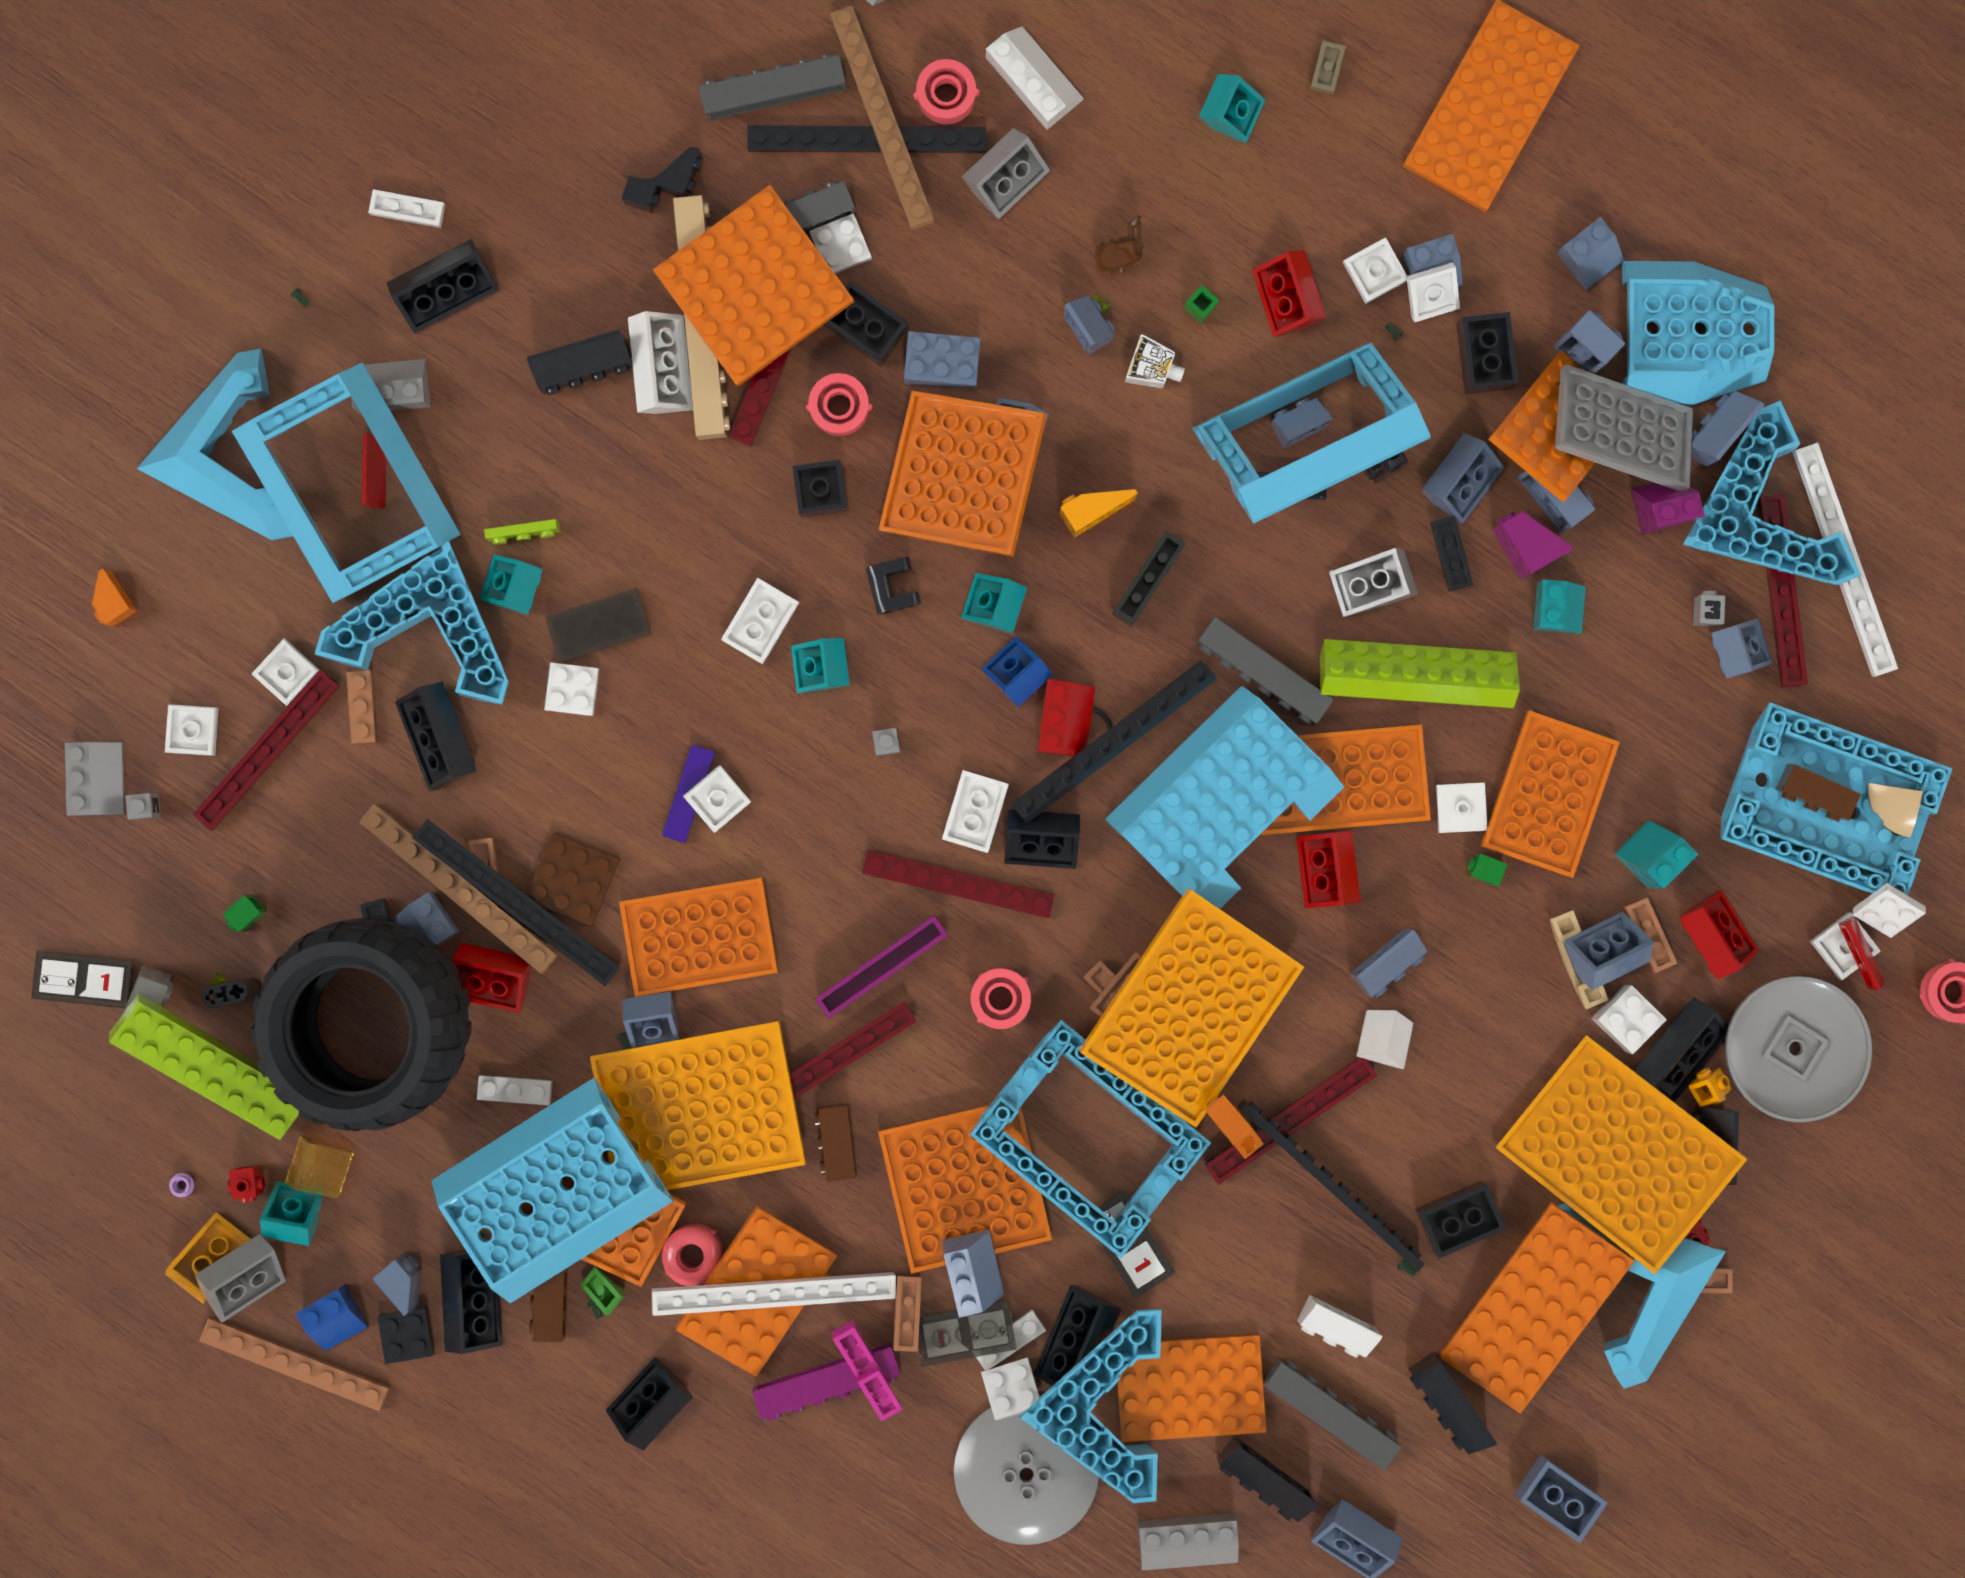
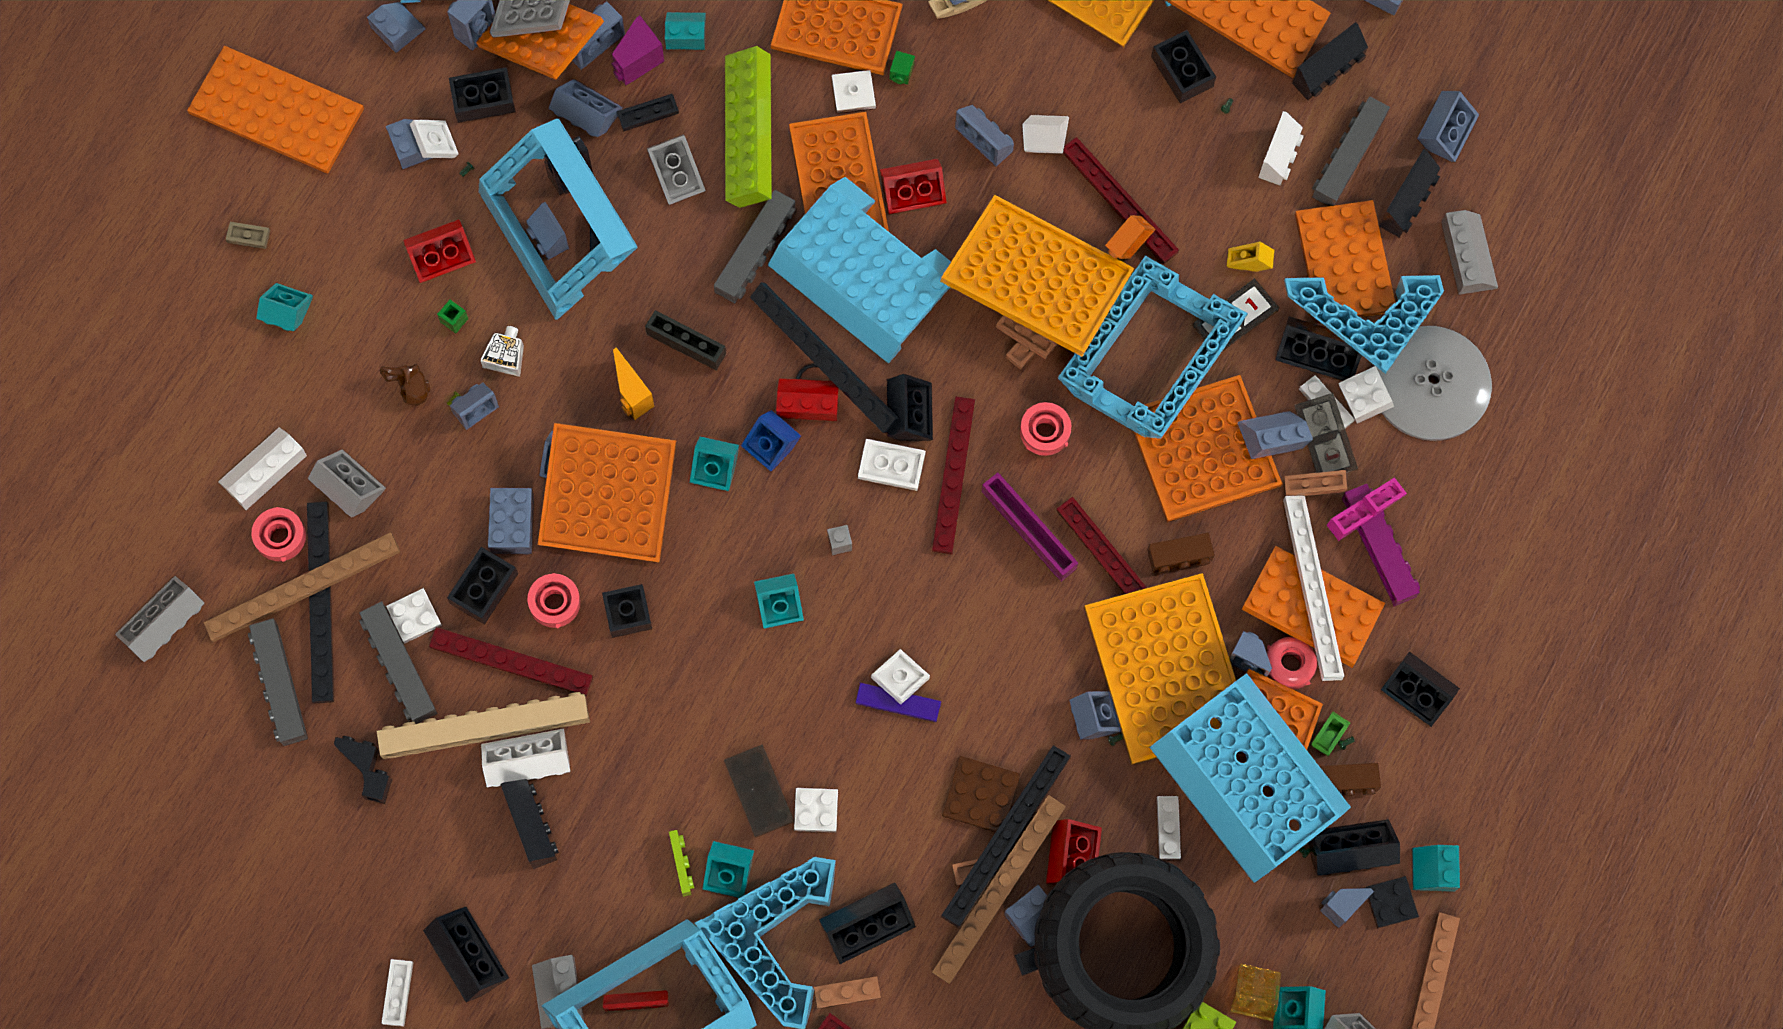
camera: 95 degrees left, 15 degrees down
(332, 1318) = (1384, 966): blue slope -> none
(437, 1392) = (1436, 868): none -> teal slope
(698, 937) = (1020, 682): orange plate -> none
(702, 1209) = (1250, 654): none -> sand blue slope
(753, 285) = (455, 677): orange plate -> none
(760, 621) = (744, 654): white plate -> none
(882, 590) = (708, 555): black connector -> none
(1202, 1271) = (1251, 257): none -> yellow slope
(1339, 1190) = (1172, 157): black plate -> none
(1375, 270) = (417, 186): white plate -> none

